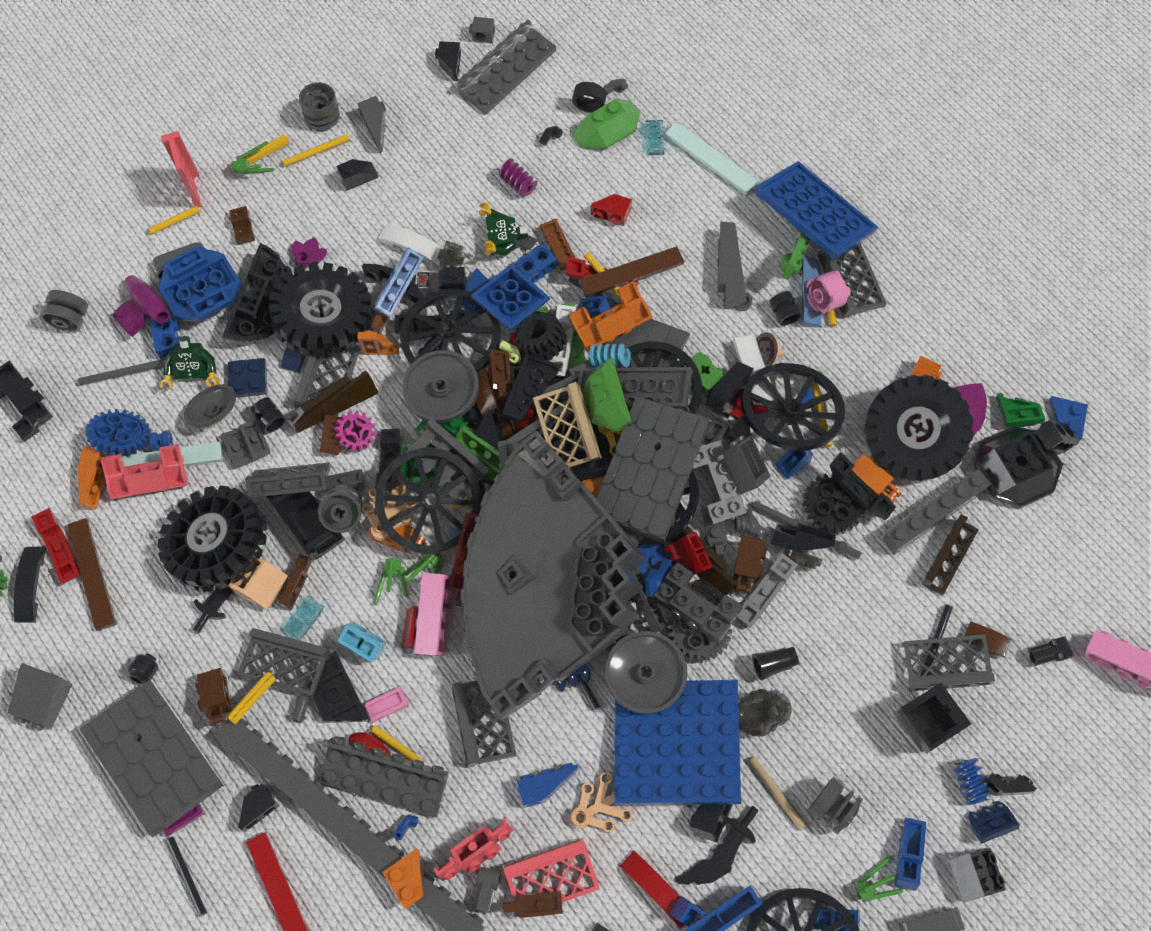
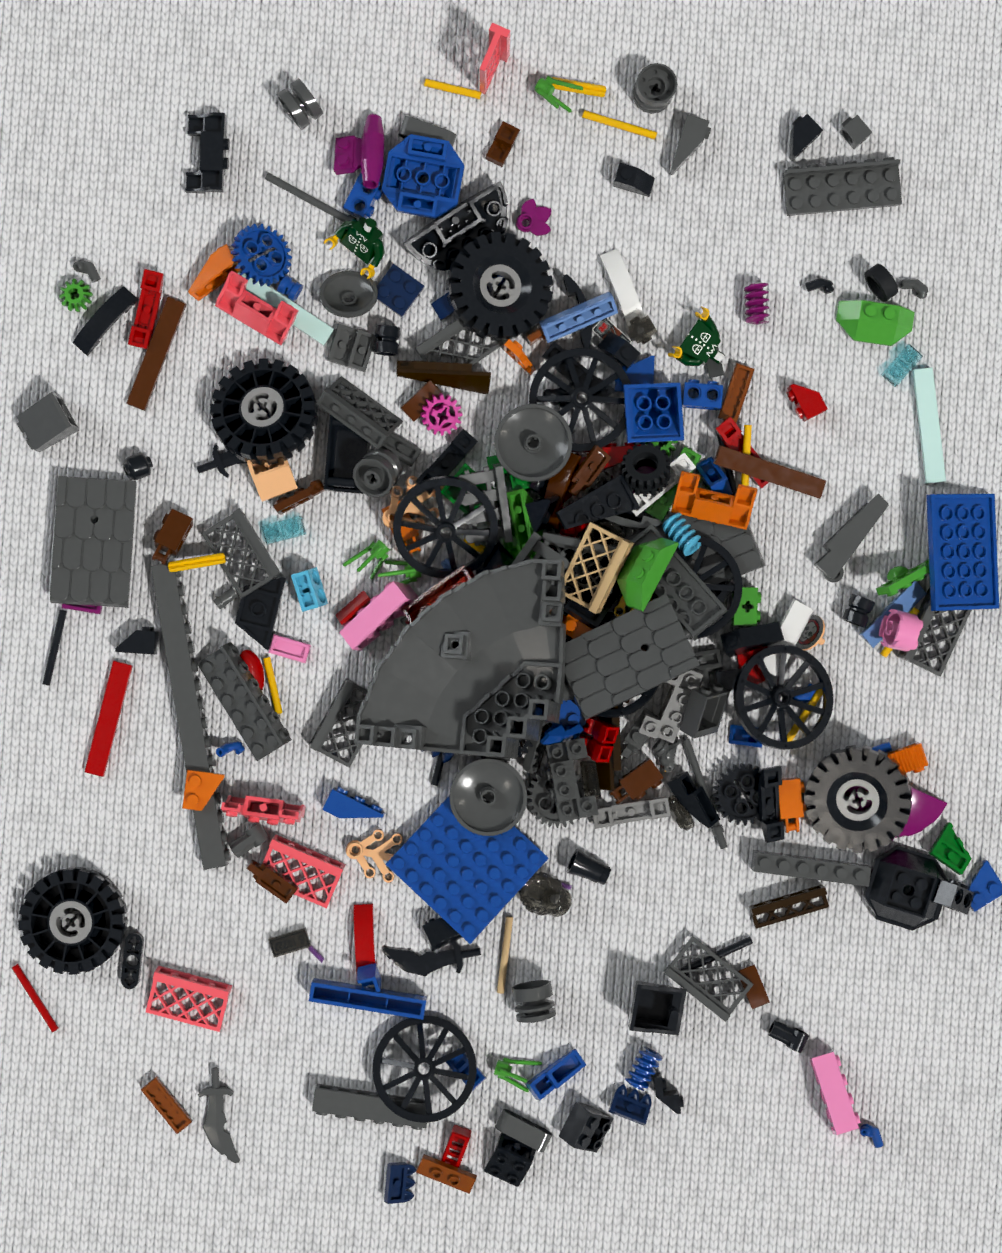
camera: 40 degrees right, 20 degrees up
(514, 354) = (615, 461): yellowish green arm -> none

